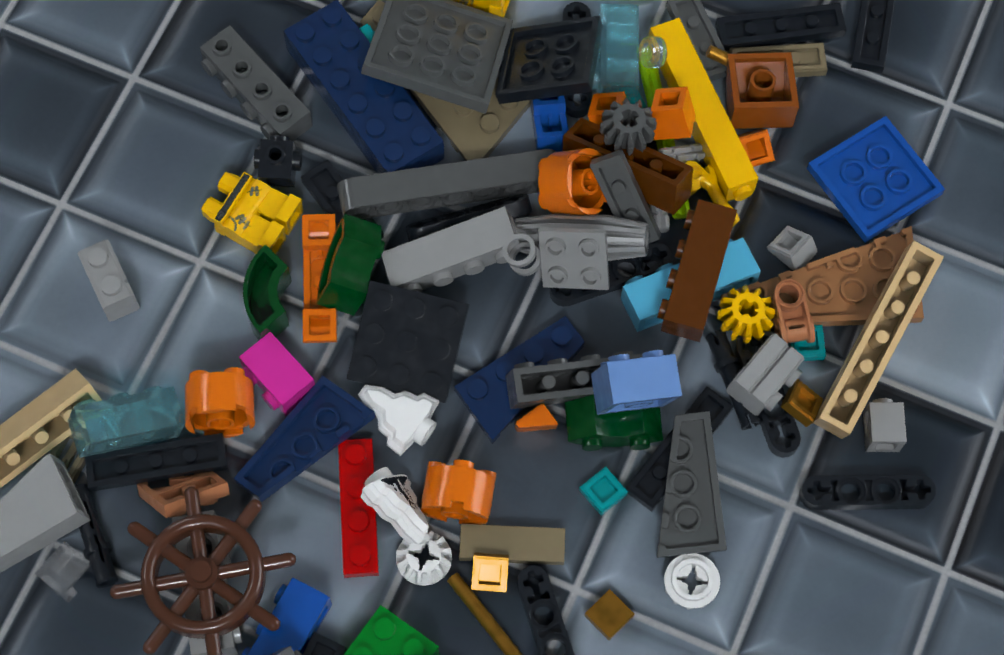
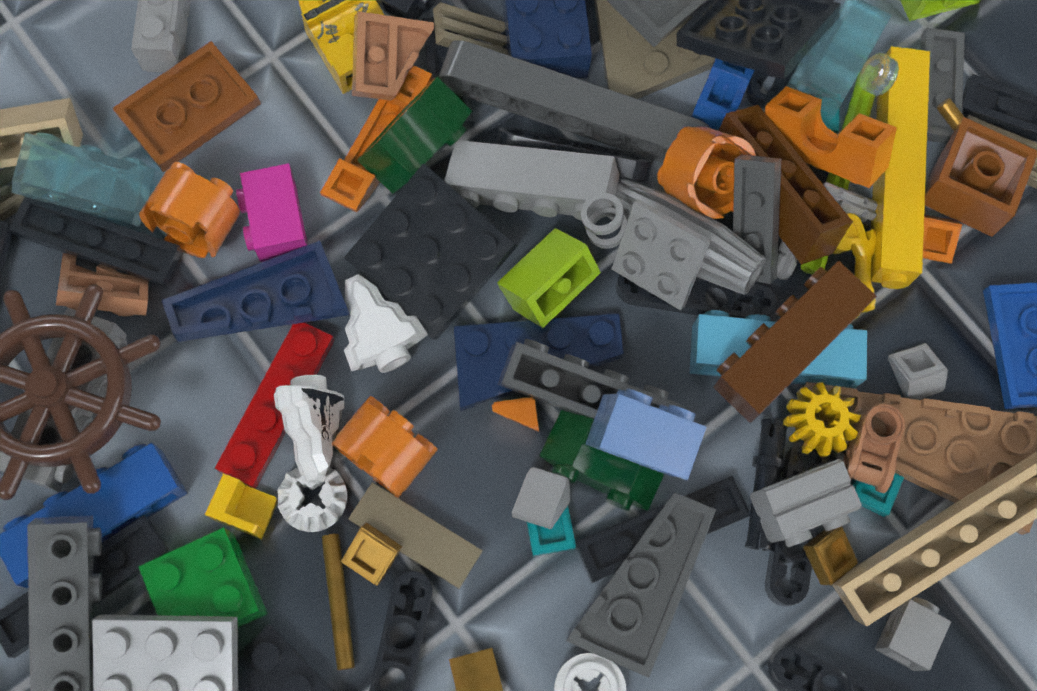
camera: 25 degrees right, 5 degrees up
(163, 330) = (186, 106): none -> dark orange plate
(263, 292) = (308, 121): dark green brick -> none
(294, 216) = (385, 53): none -> nougat wing
(340, 165) = (470, 26): none -> dark tan tile
(379, 590) = (241, 506): none -> yellow panel
(503, 315) = (549, 277): none -> lime brick
(586, 469) = (542, 498): none -> light grey slope
(628, 126) = (803, 137): dark grey gear -> none

